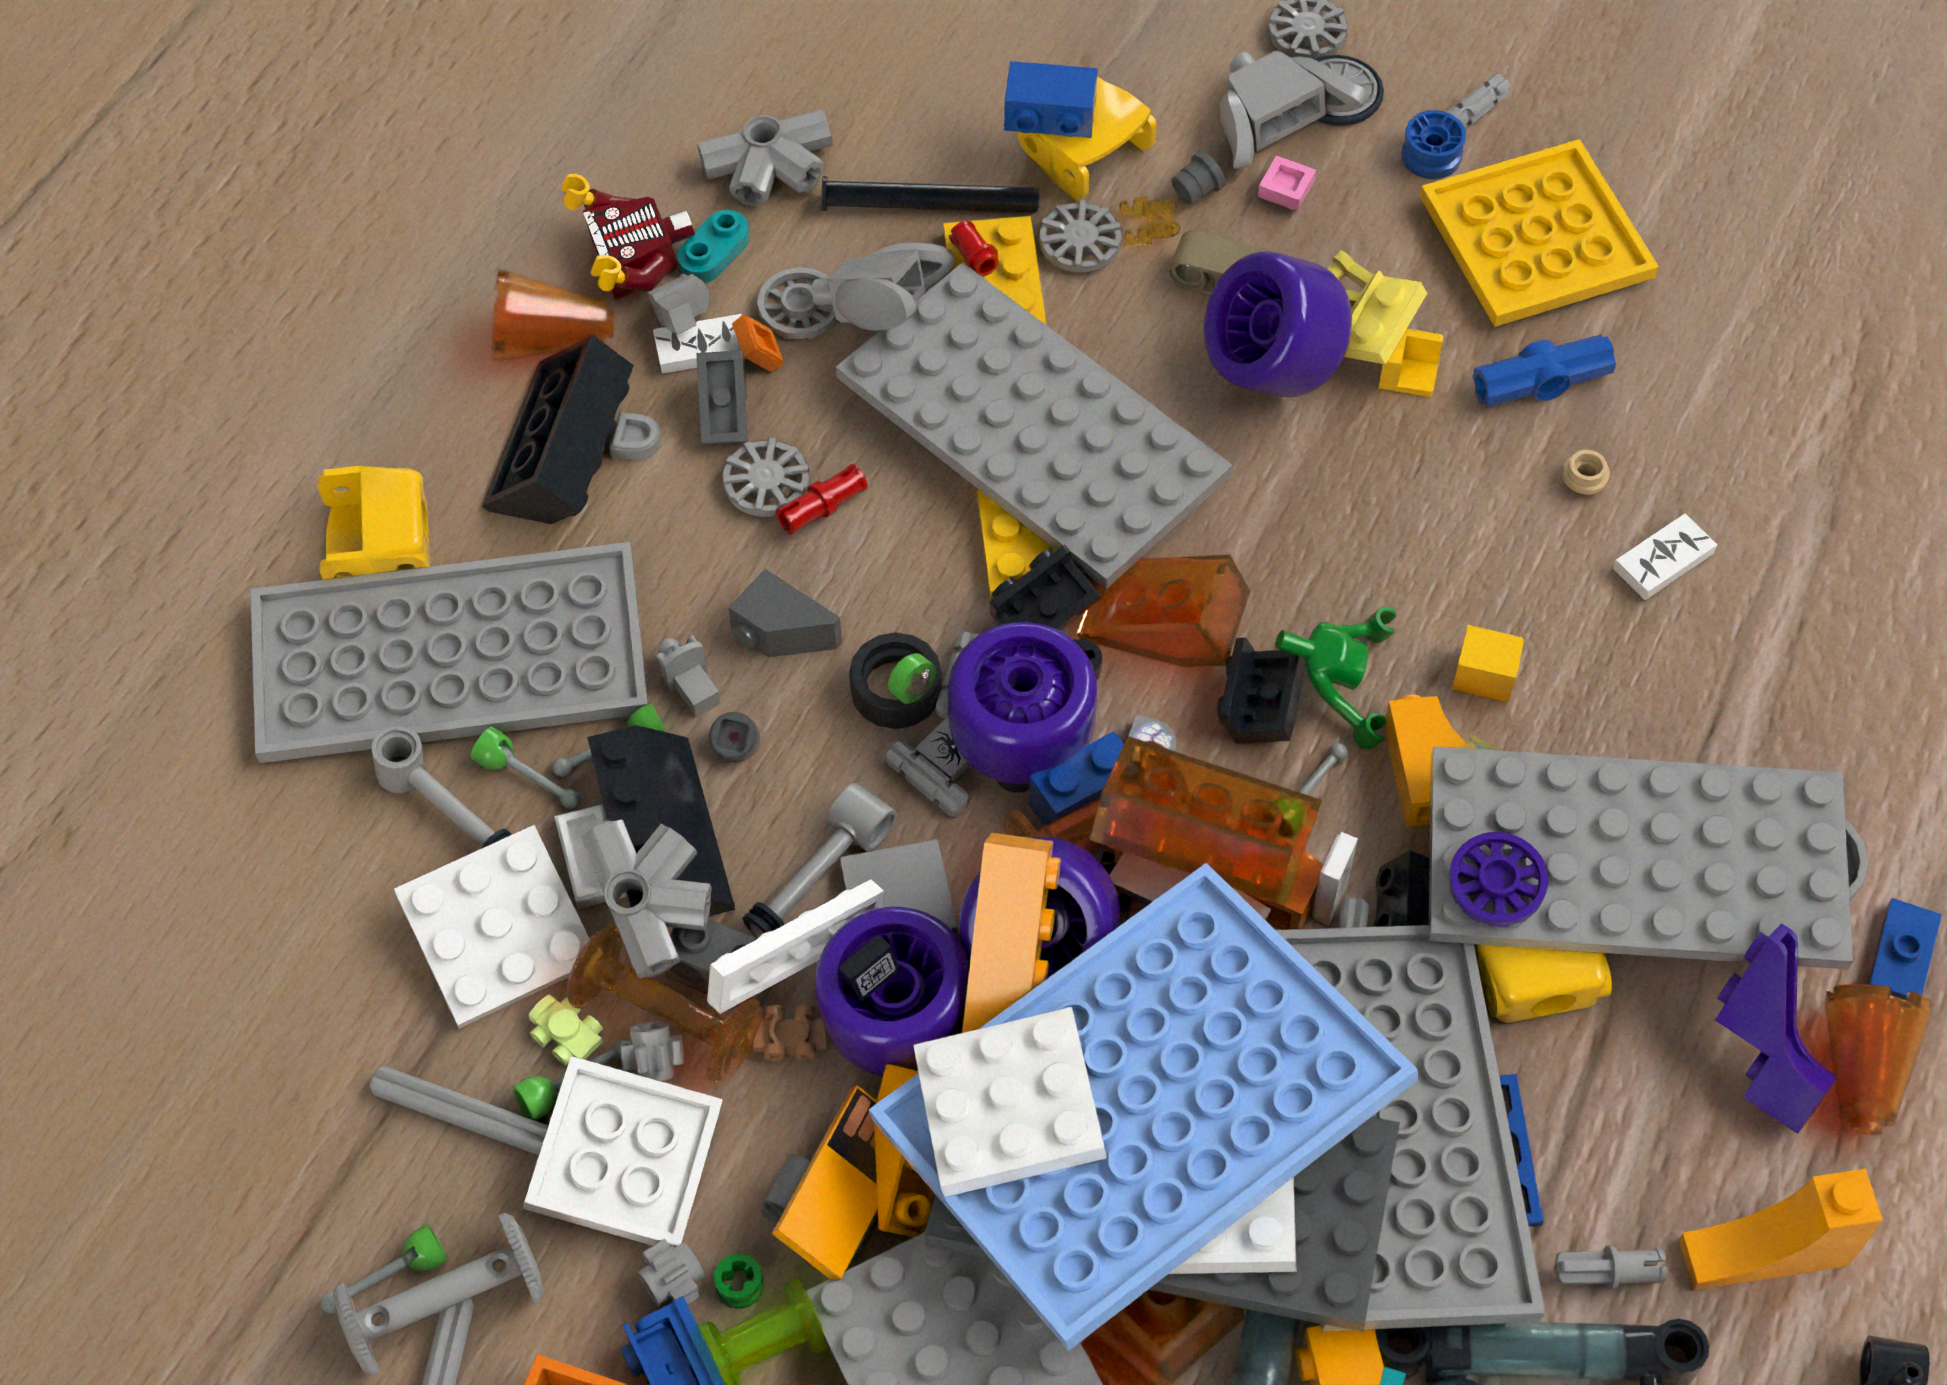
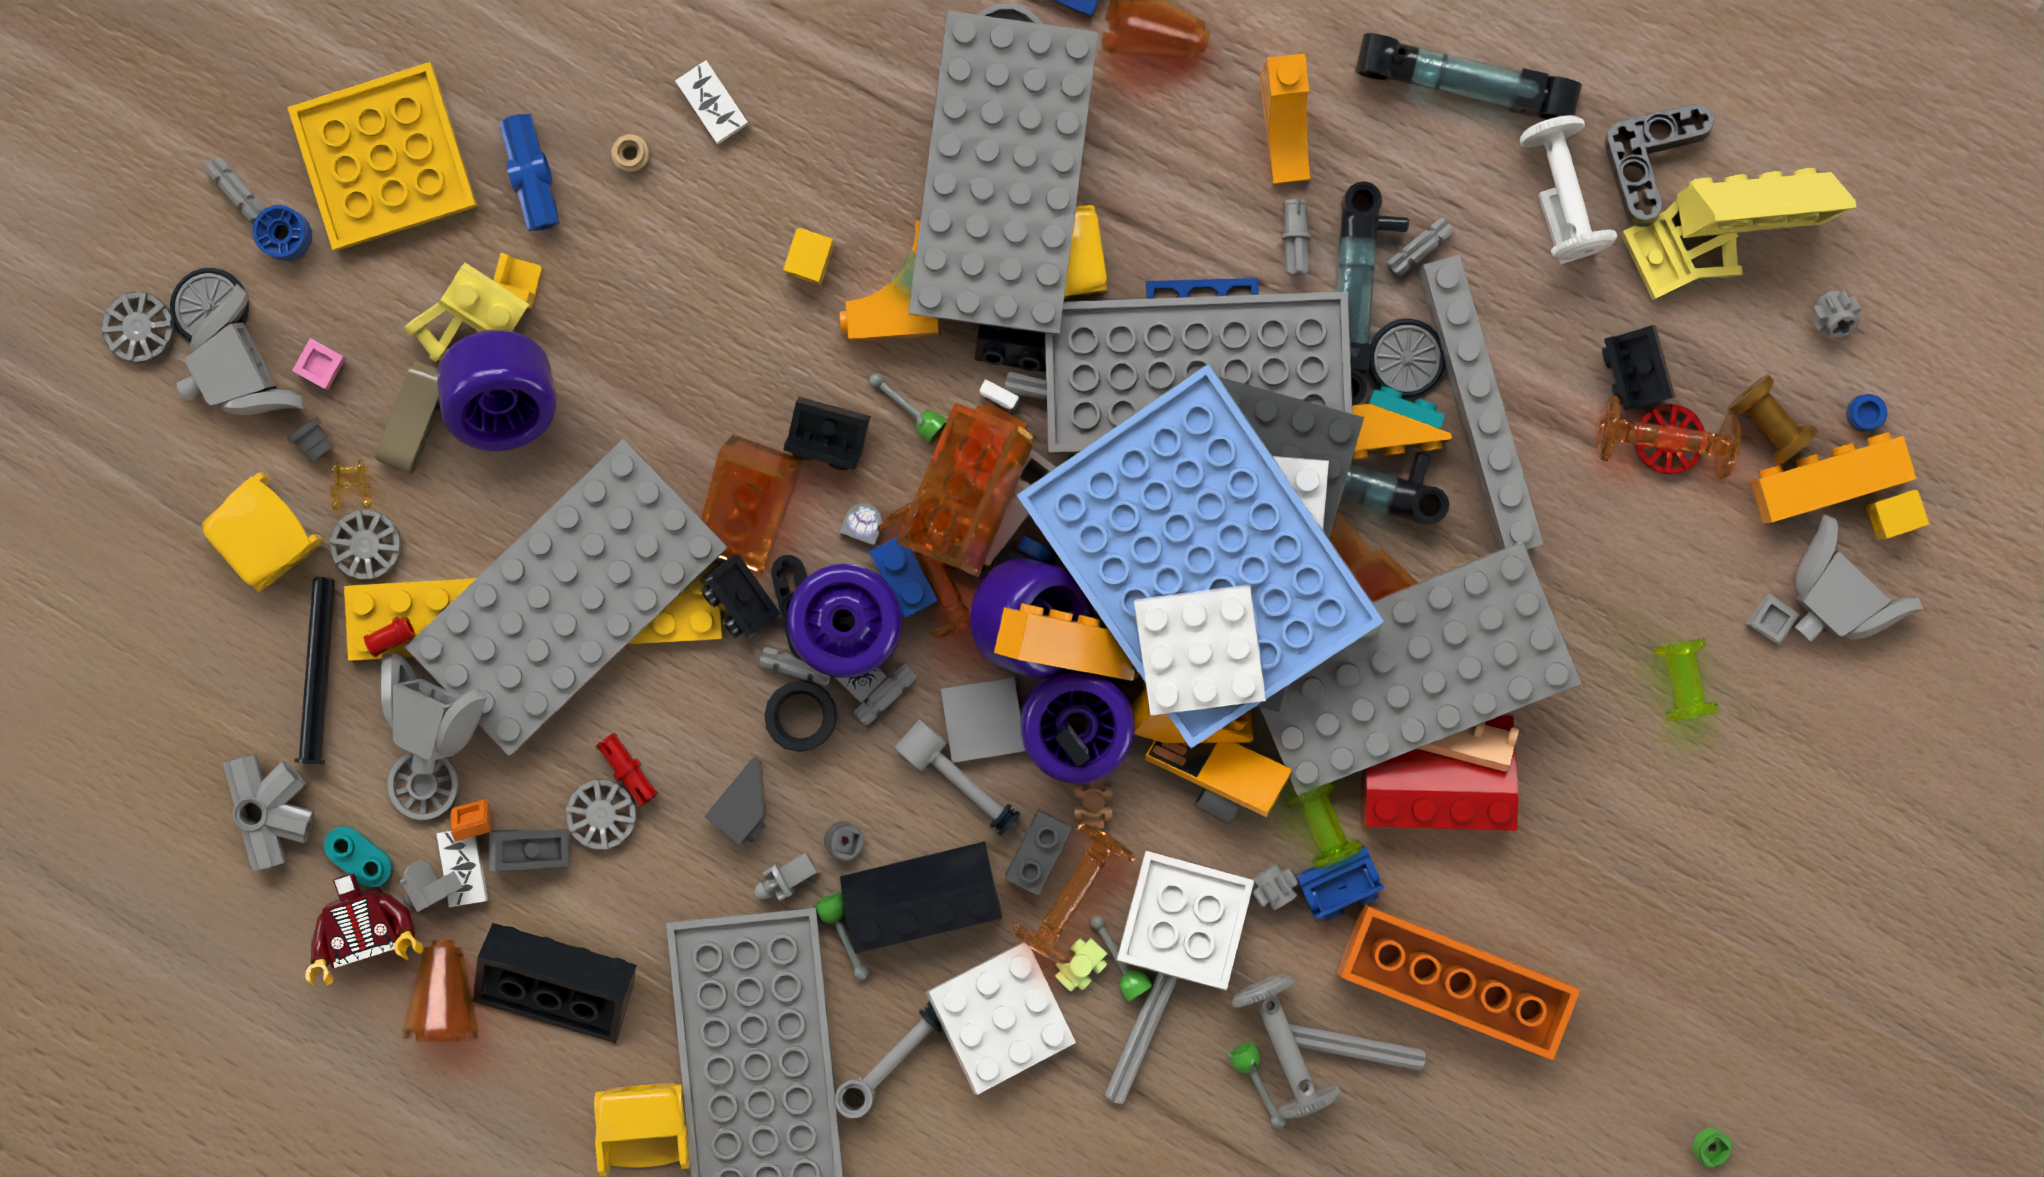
camera: 90 degrees left, 30 degrees up
(495, 751) = (848, 1022): hinge -> none
(580, 869) = (938, 951): white tile -> none
(635, 437) = (554, 920): light grey tile -> none
(652, 1050) = (1107, 901): light grey gear -> none
(664, 900) = (989, 902): light grey piece -> none
(751, 1290) = (1284, 832): green bush -> none
(786, 949) = (1034, 786): white plate -> none
(911, 678) = (817, 704): bright green tile -> none
(1050, 99) = (248, 564): blue hinge -> none
(1337, 658) = (805, 372): green piece -> none
(1498, 879) = (1026, 280): dark purple wheel -> none
(1764, 1013) = (1130, 102): dark purple arch -> none

